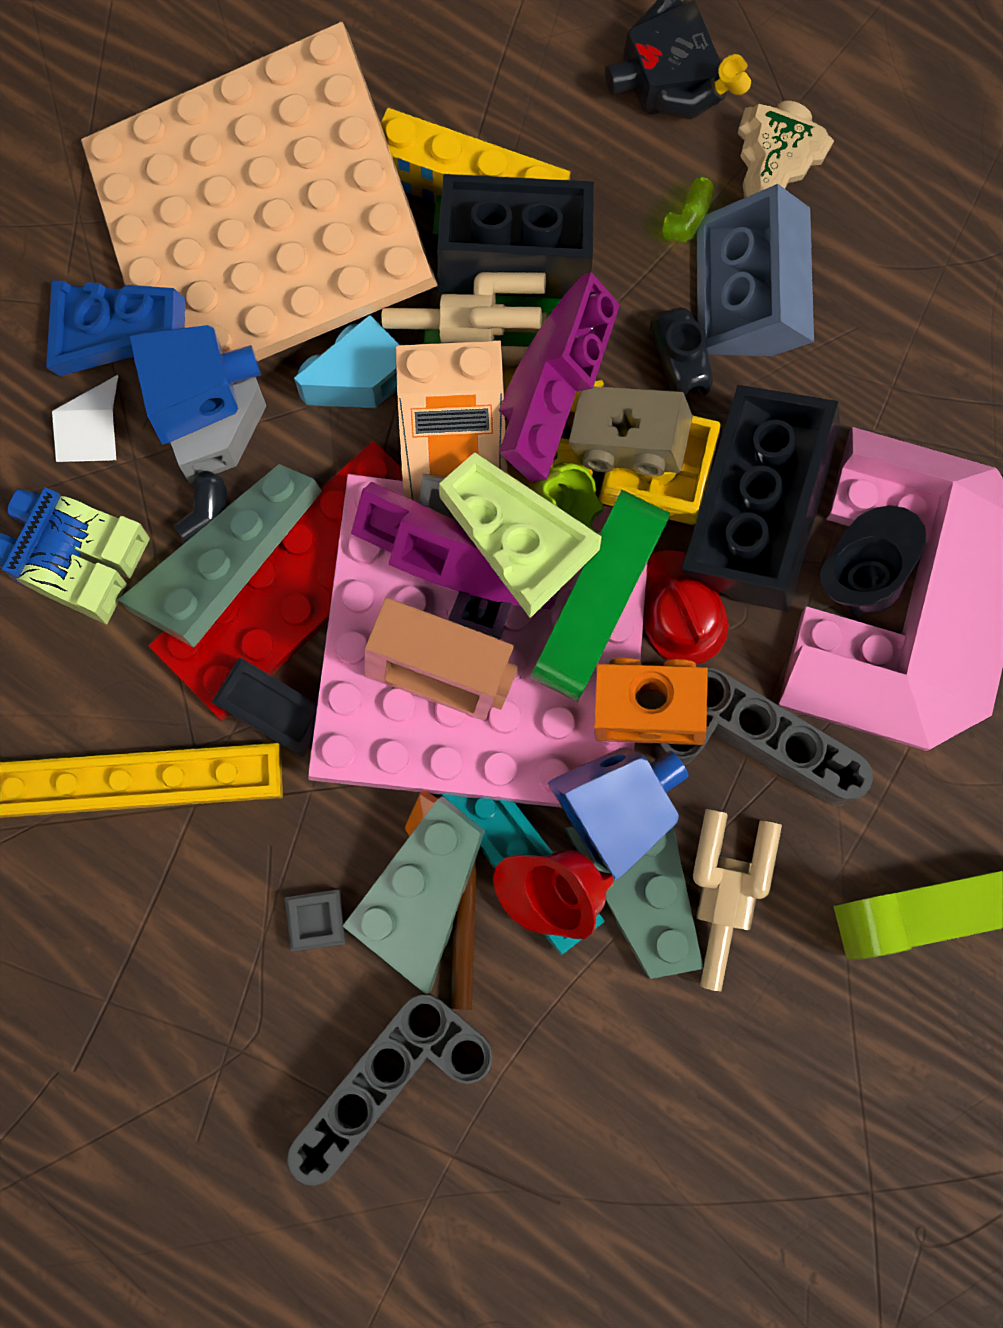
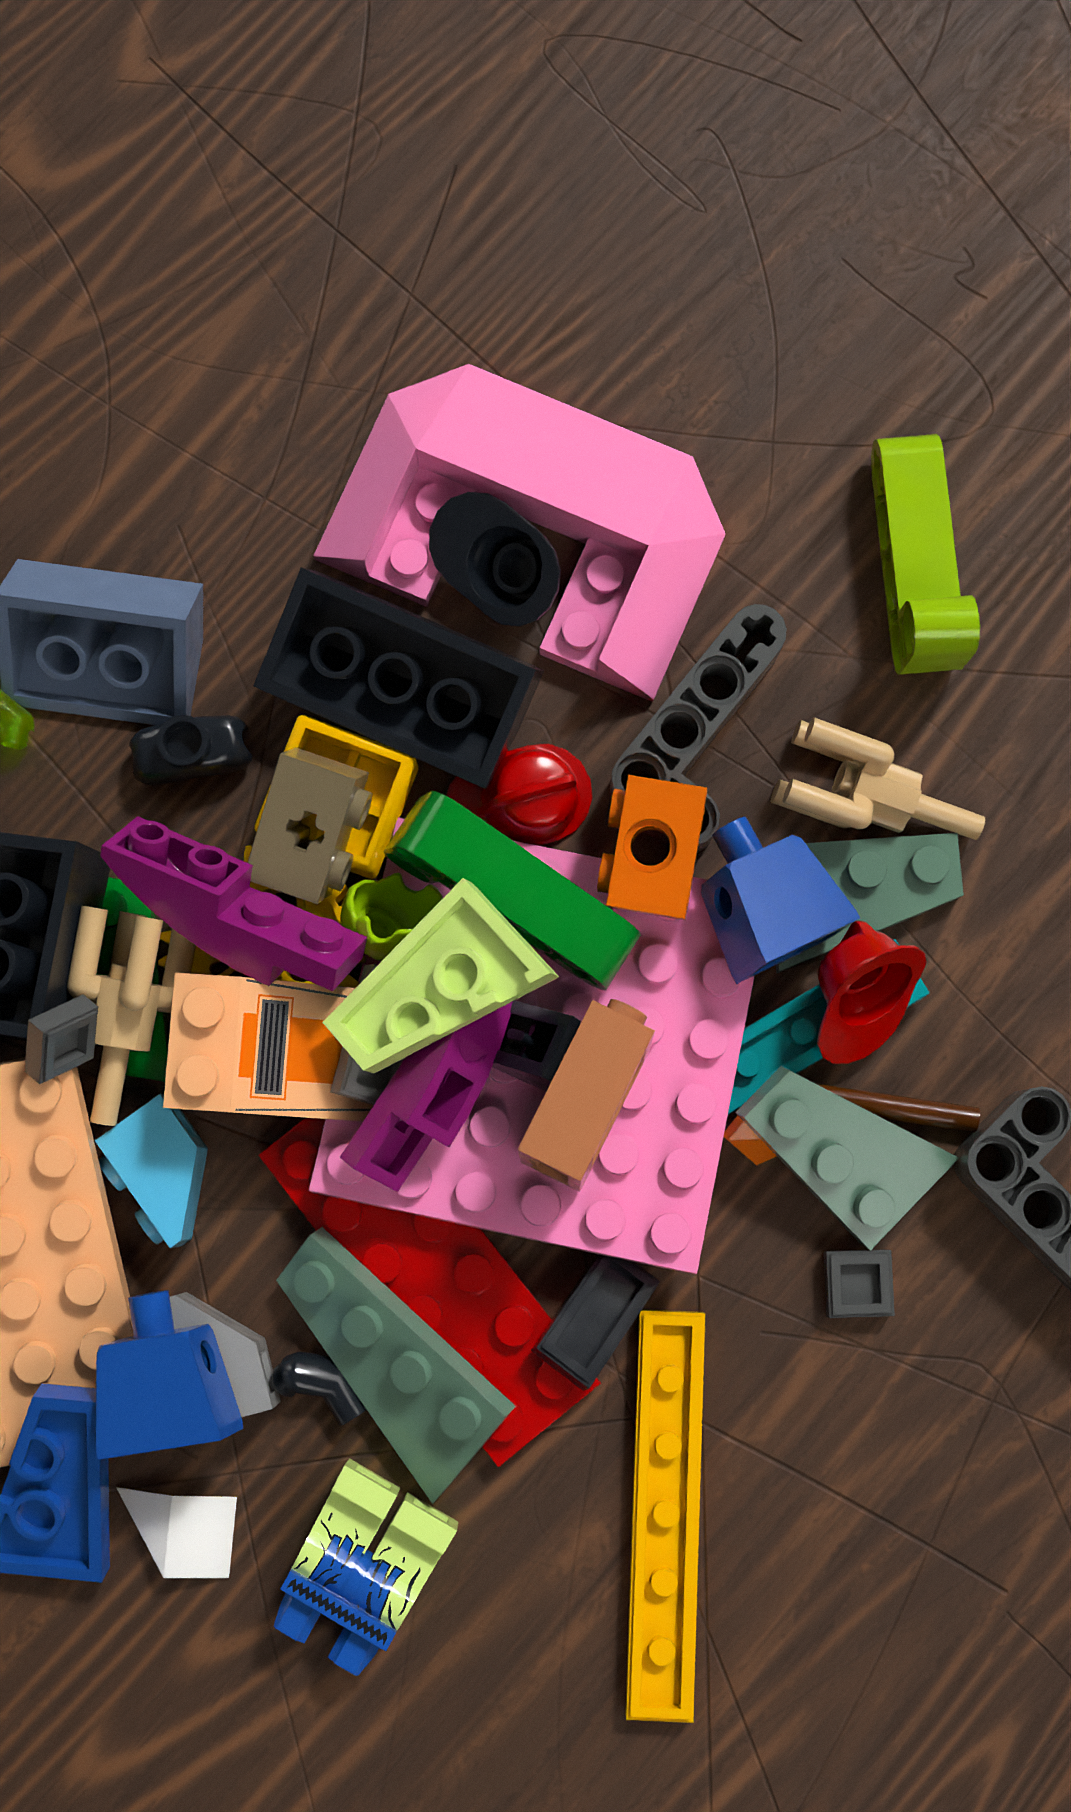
camera: 80 degrees left, 5 degrees up
(440, 267) = (61, 1039): none -> dark grey tile

